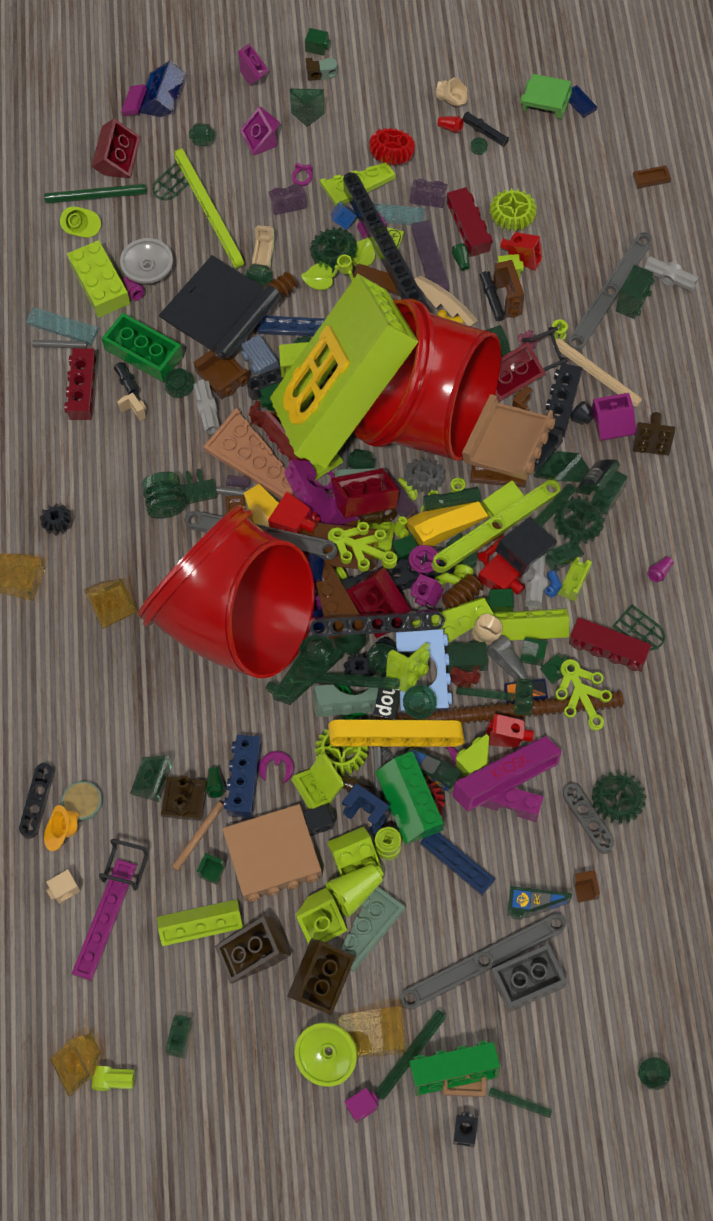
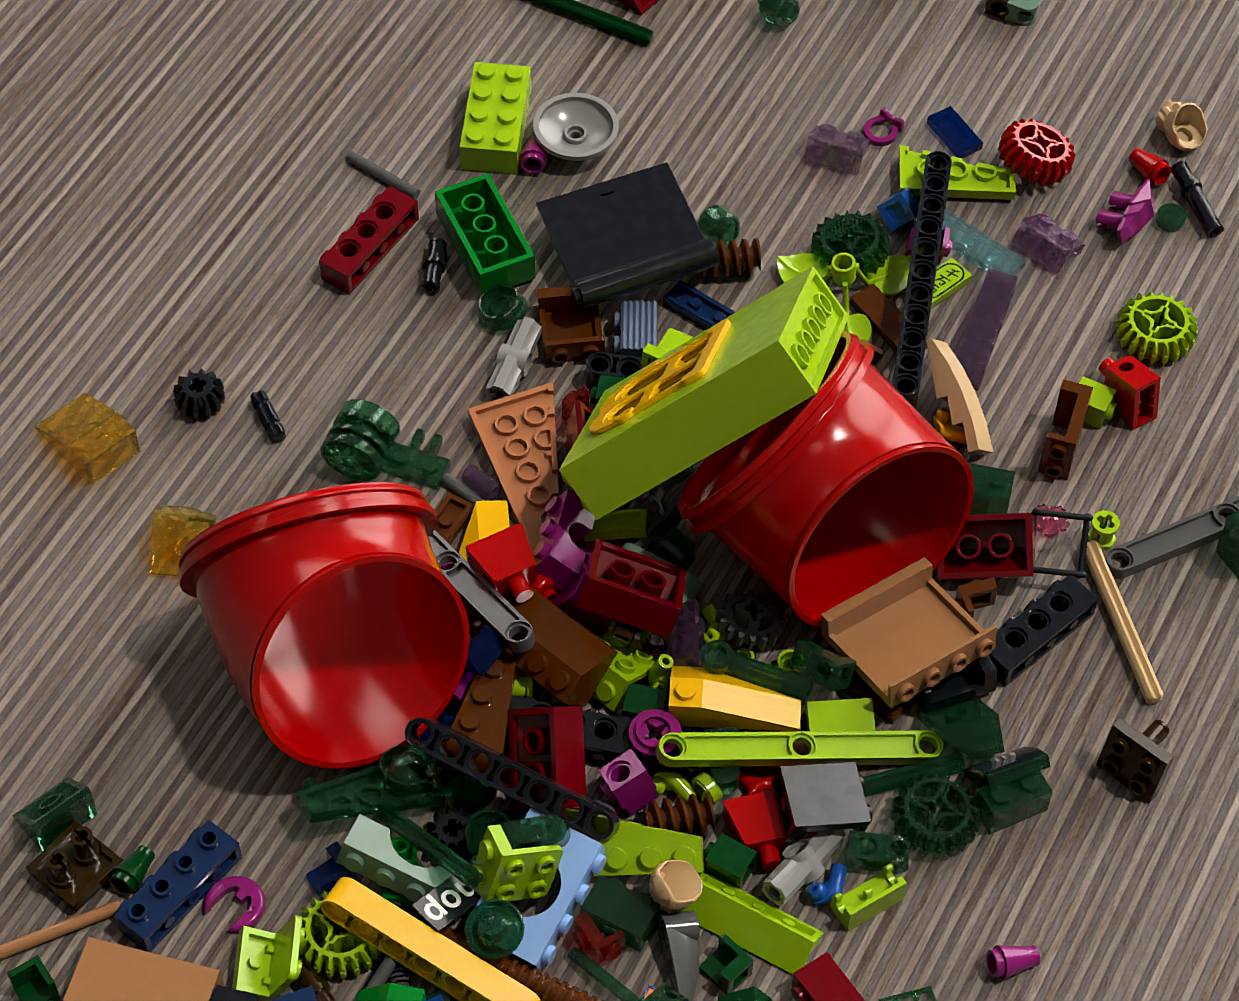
camera: 30 degrees right, 10 degrees down
(62, 325) = (404, 154): clear light blue tile -> none
(80, 222) = (526, 33): lime piece -> none
(100, 510) = (268, 416): none -> black axle
(130, 401) = (414, 297): tan bracket -> none
(165, 184) = (685, 57): clear green window -> none
(208, 208) = (715, 106): lime beam -> none
(260, 131) = (862, 41): magenta slope -> none
(264, 245) = (755, 191): tan animal -> none
(307, 104) = (955, 38): clear green slope -> none
(313, 725) = (328, 873): none -> clear blue panel
(340, 157) = (954, 132): none -> clear blue tile
(361, 545) = (572, 657): lime plant -> none
(408, 643) = (537, 832): none -> clear green leg
(426, 503) = (717, 657): none -> clear green tile
(461, 148) = (1138, 212): none -> magenta connector
(461, 256) = (1032, 350): dark green cone -> none
(469, 222) = (1077, 311): dark red brick -> none
(478, 478) = (822, 666): none -> clear green leg
(489, 289) = (1040, 419): black pin -> none
(582, 413) = (1053, 665): black cone -> none
(614, 416) = (1097, 694): magenta slope -> none

